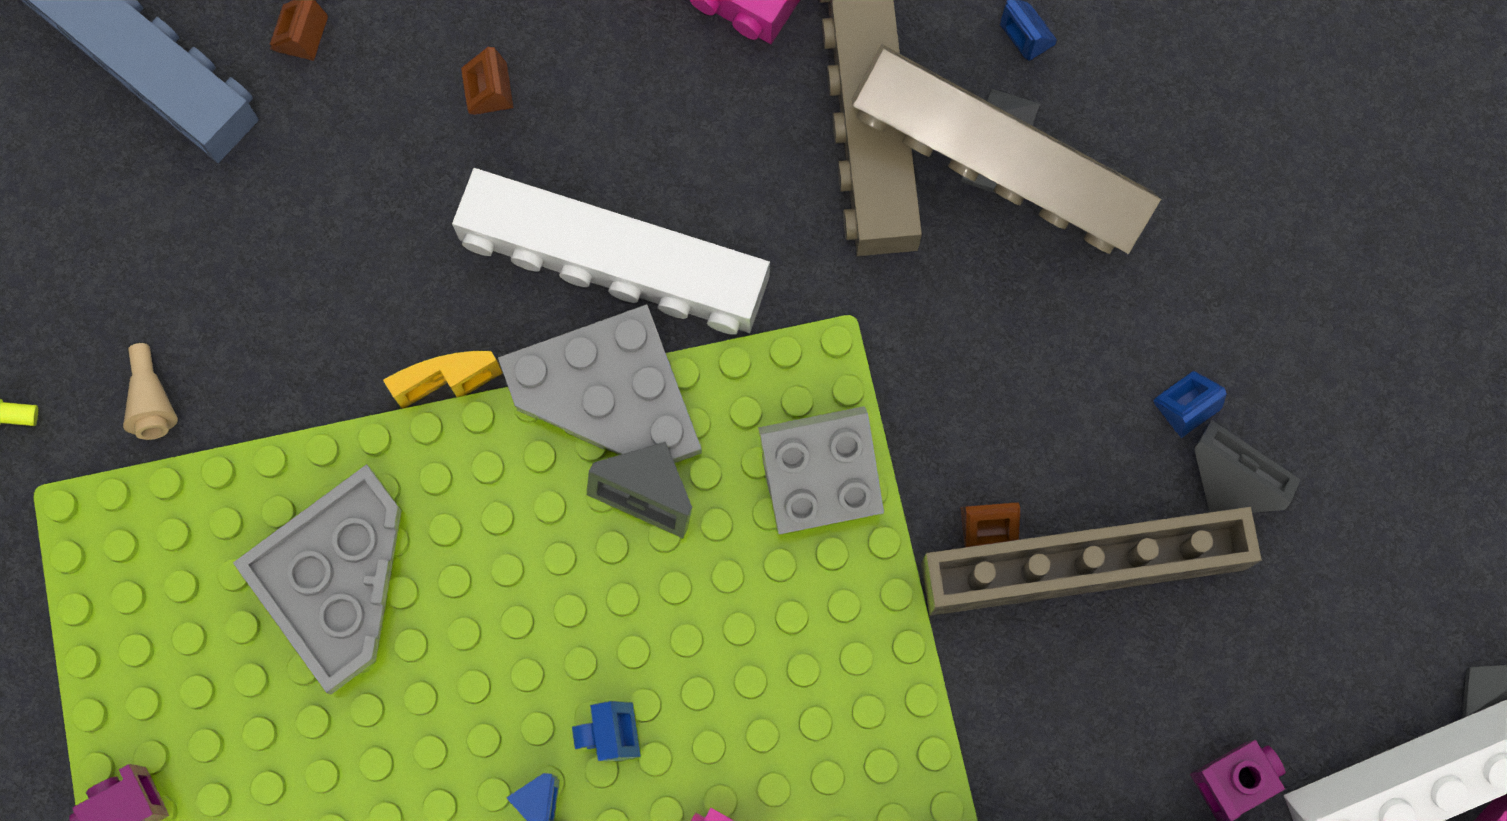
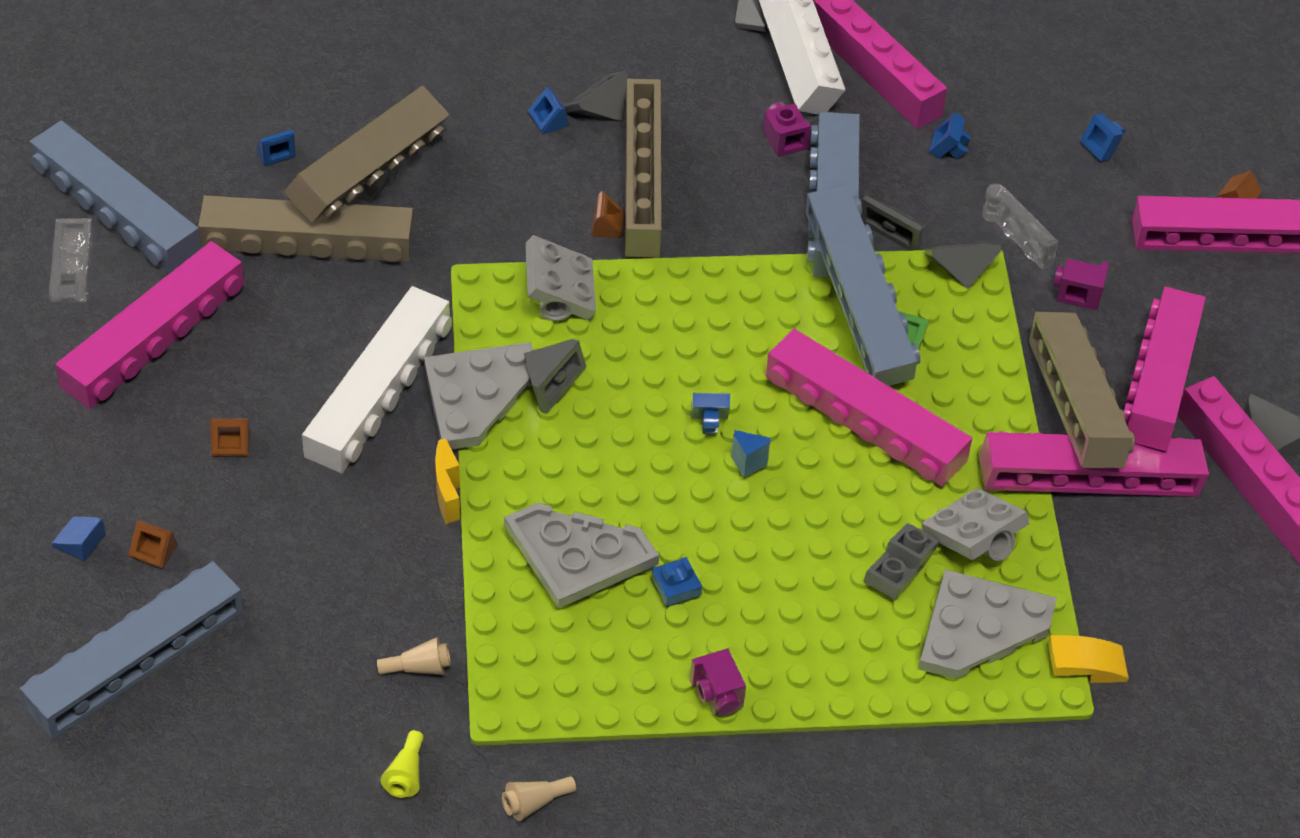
camera: 85 degrees left, 25 degrees down
(302, 724) = (676, 581): none -> blue tile

